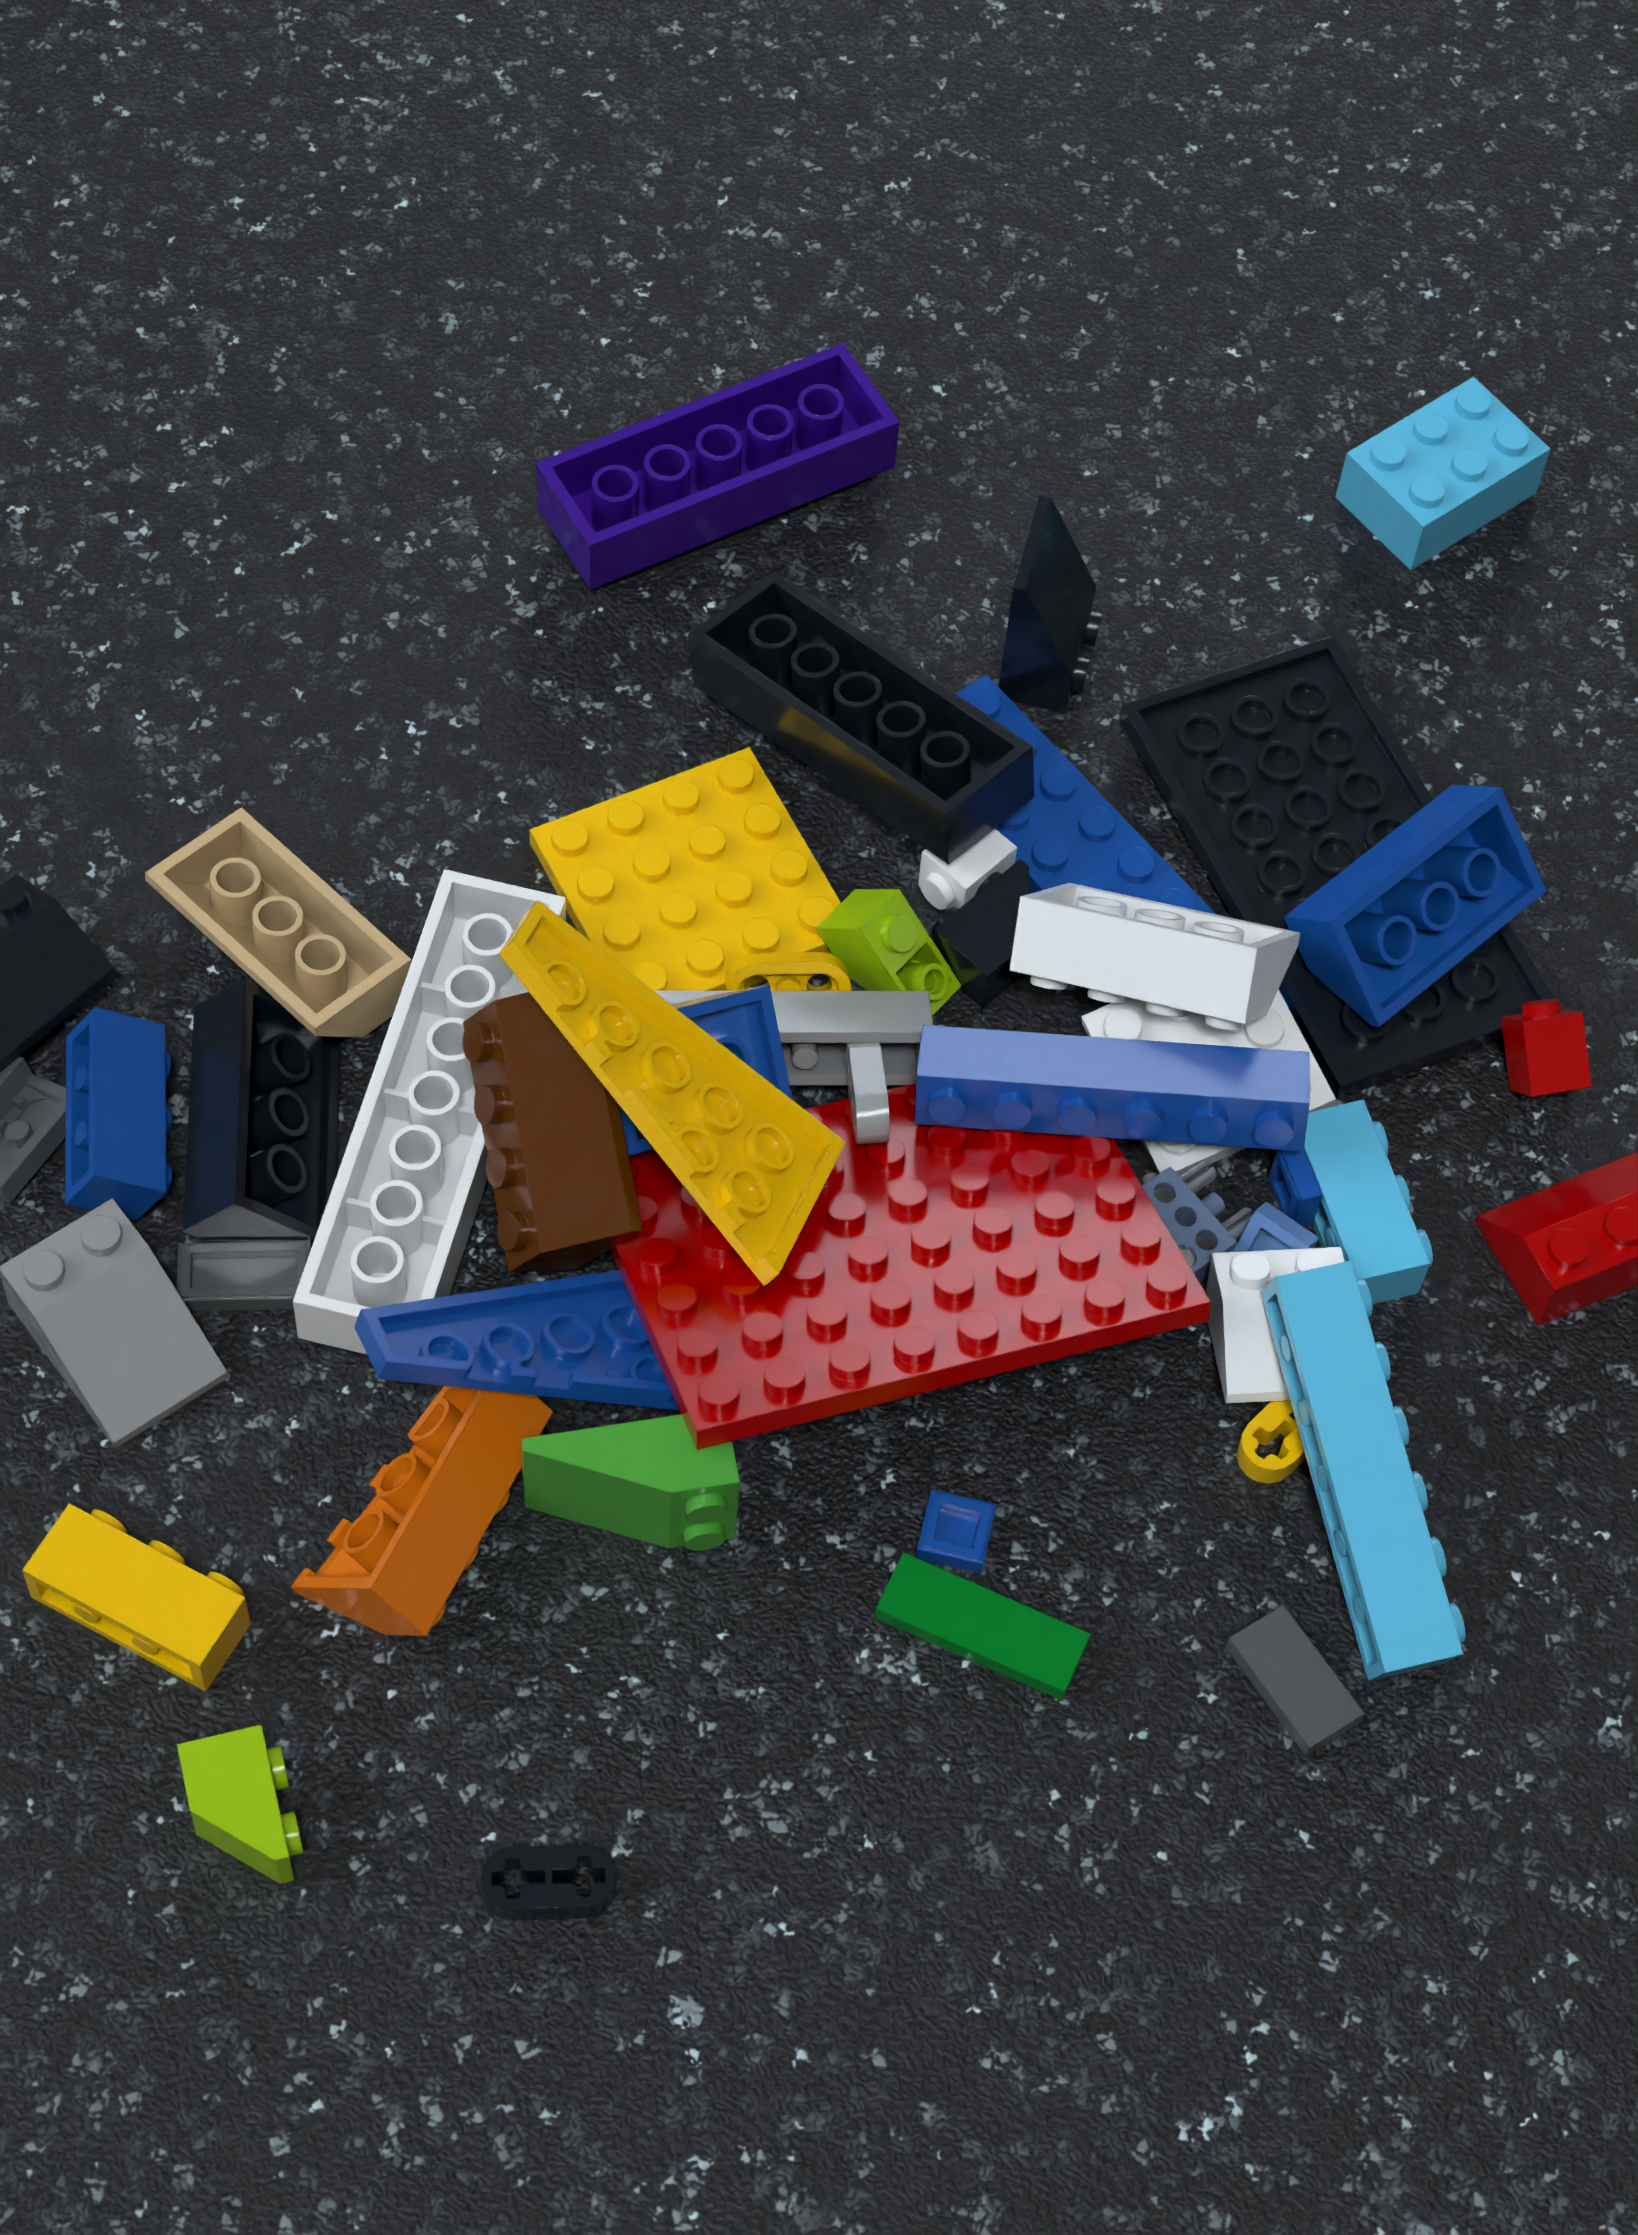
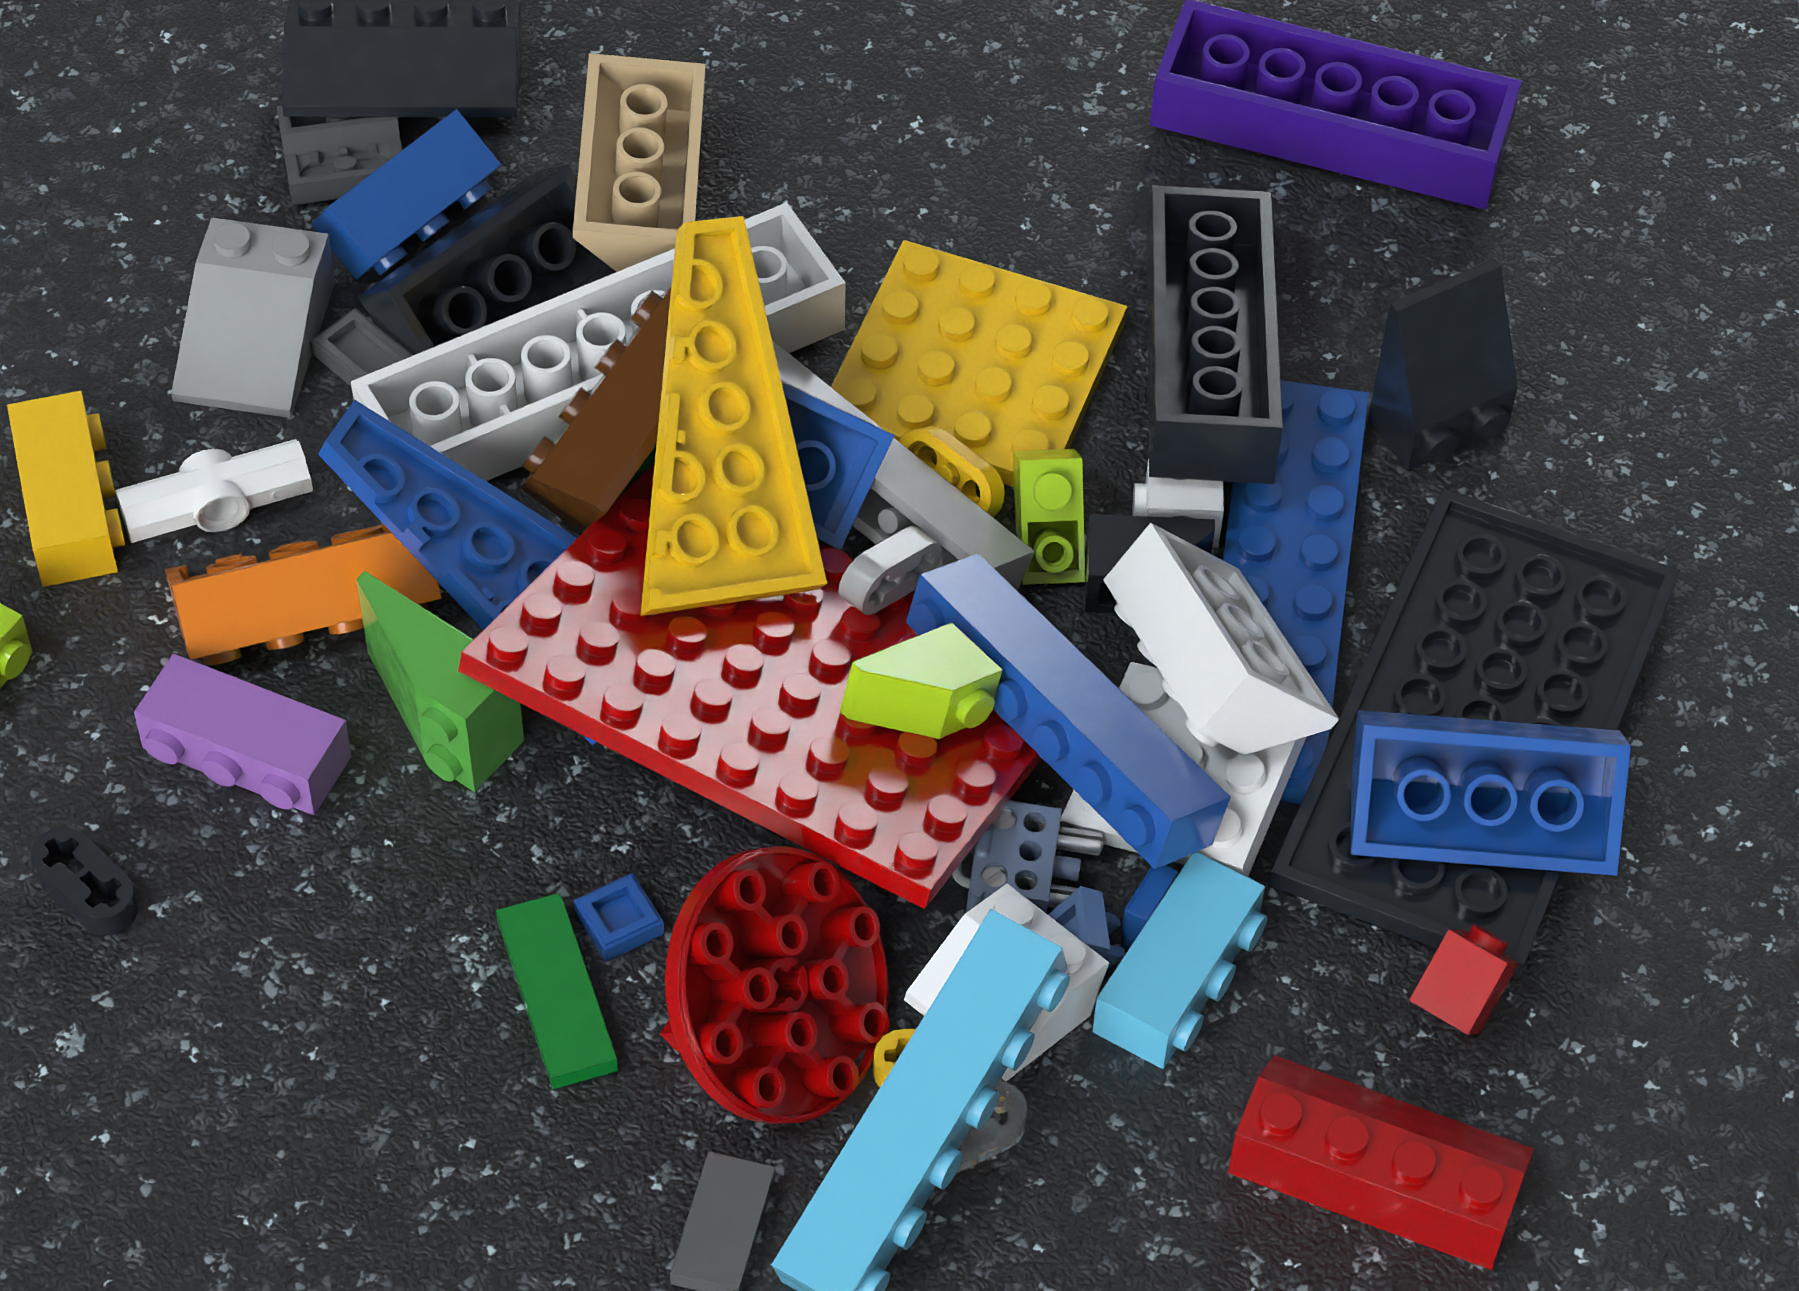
camera: 50 degrees right, 5 degrees down
(260, 1486) = (214, 490): none -> white piece
(532, 1657) = (243, 735): none -> medium lavender brick
(1022, 1153) = (924, 685): none -> lime slope
(1153, 1480) = (776, 985): none -> red bracket

